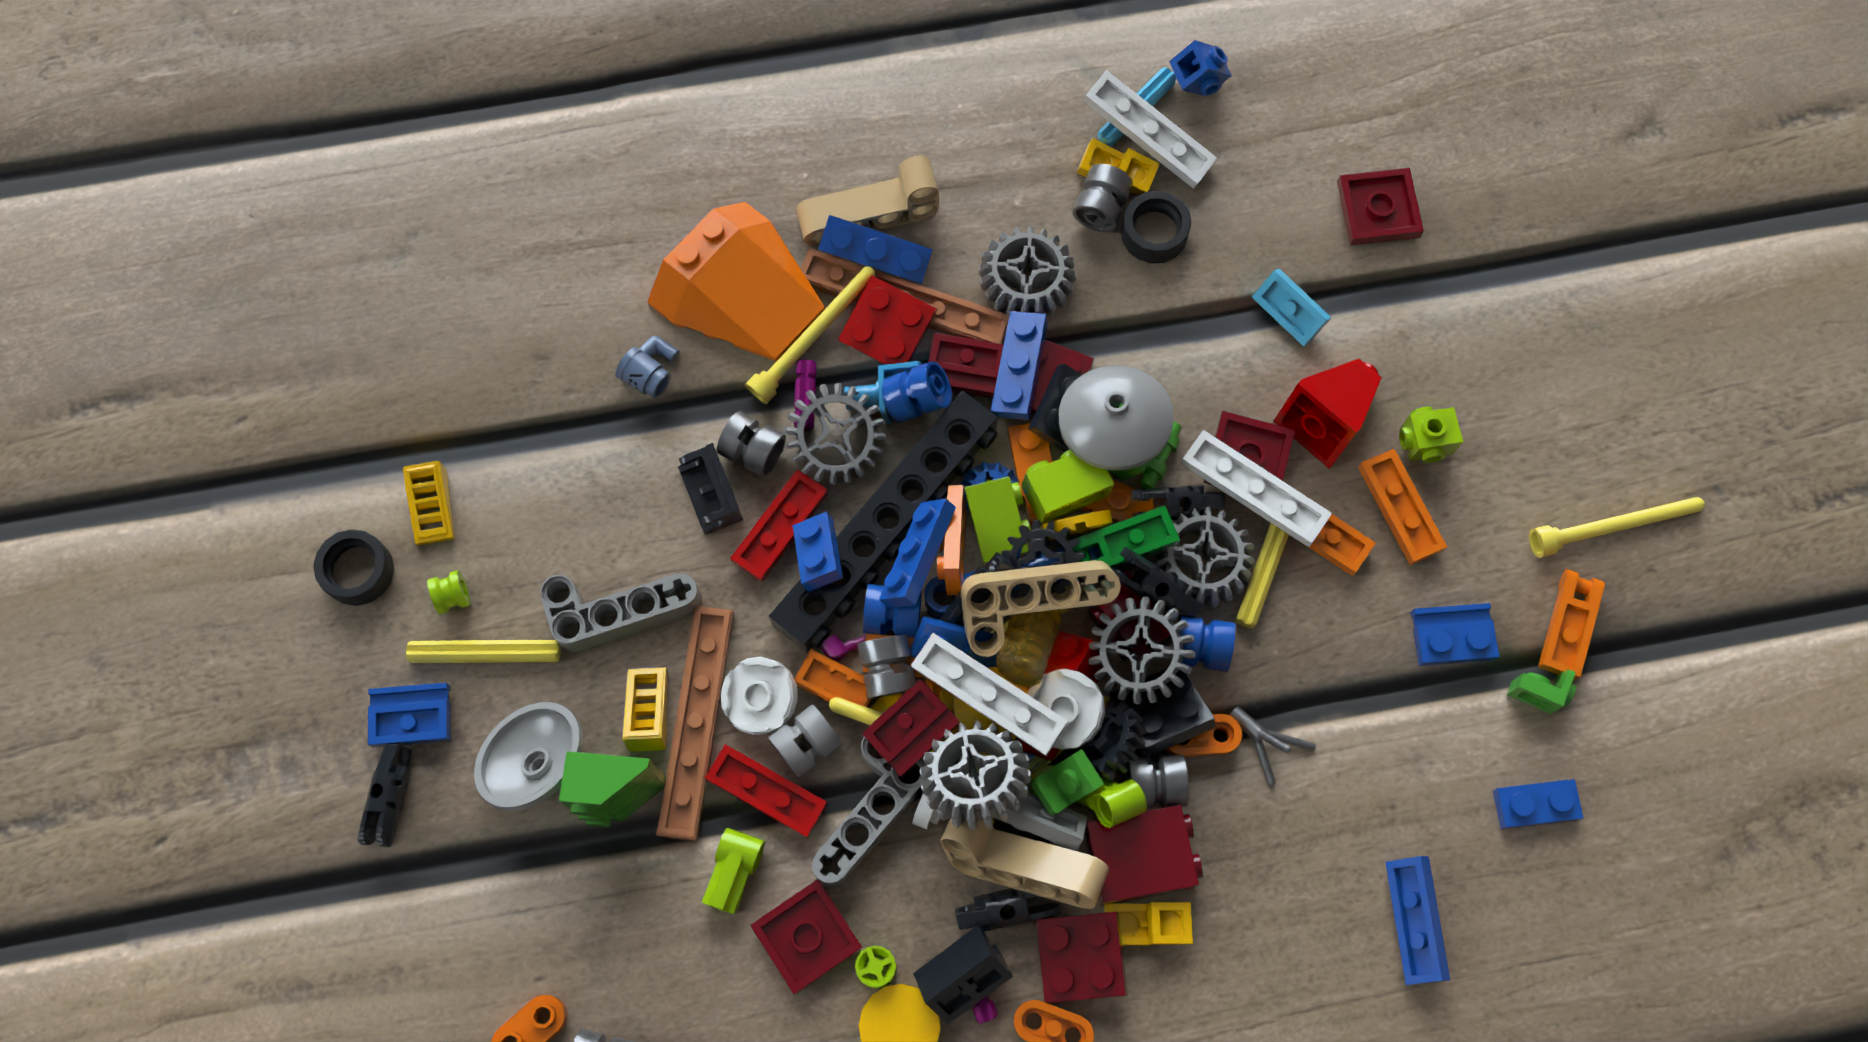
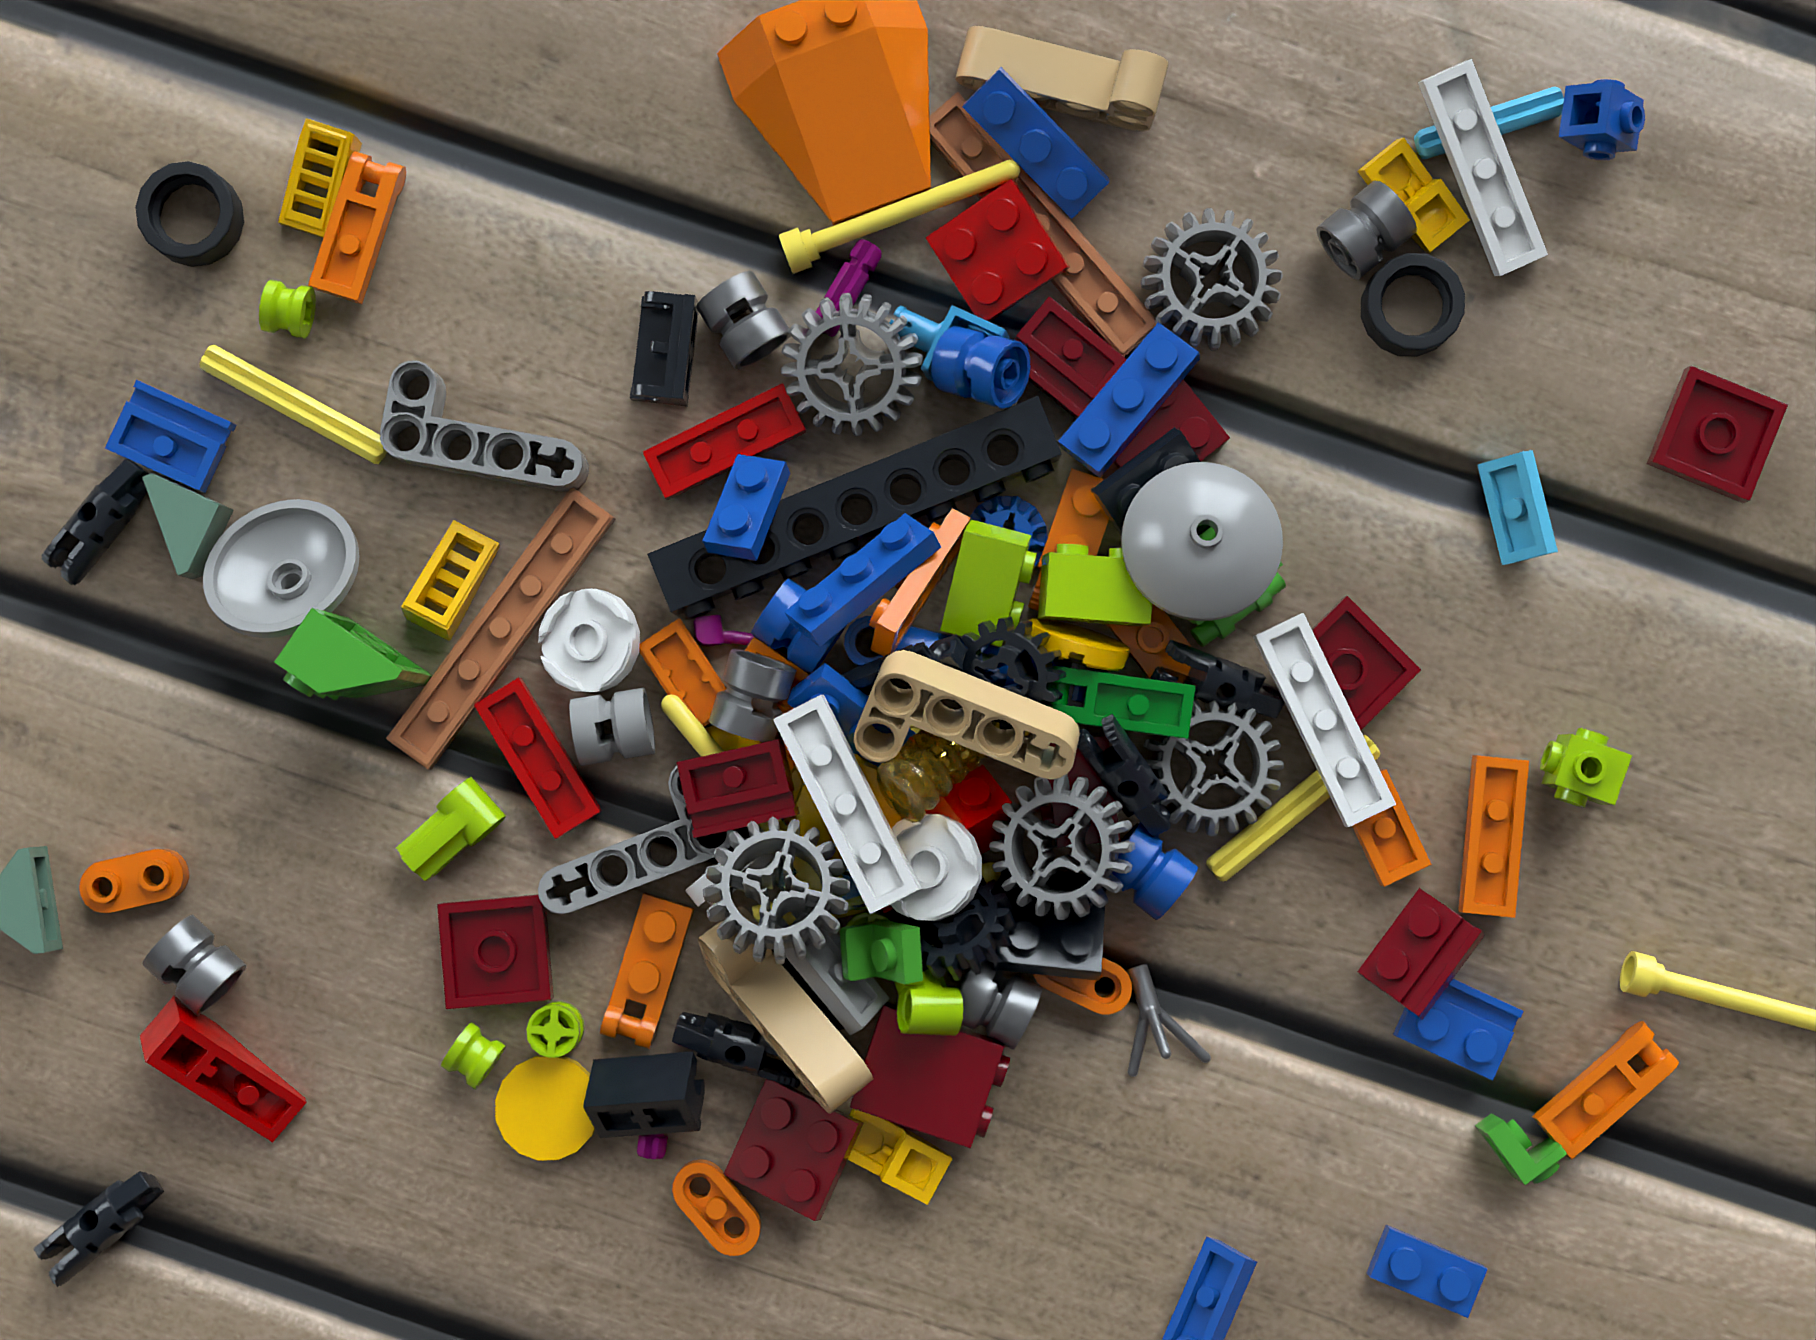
camera: 30 degrees right, 15 degrees up
(450, 761) = (187, 522): none -> sand green slope
(470, 521) = (356, 228): none -> orange plate
(642, 371) = (662, 149): sand blue piece -> none
(829, 1017) = (473, 1055): none -> lime wheel
(915, 892) = (647, 968): none -> orange plate
(1330, 408) = (1485, 669): red slope -> none
(1404, 602) = (1421, 953): none -> dark red plate

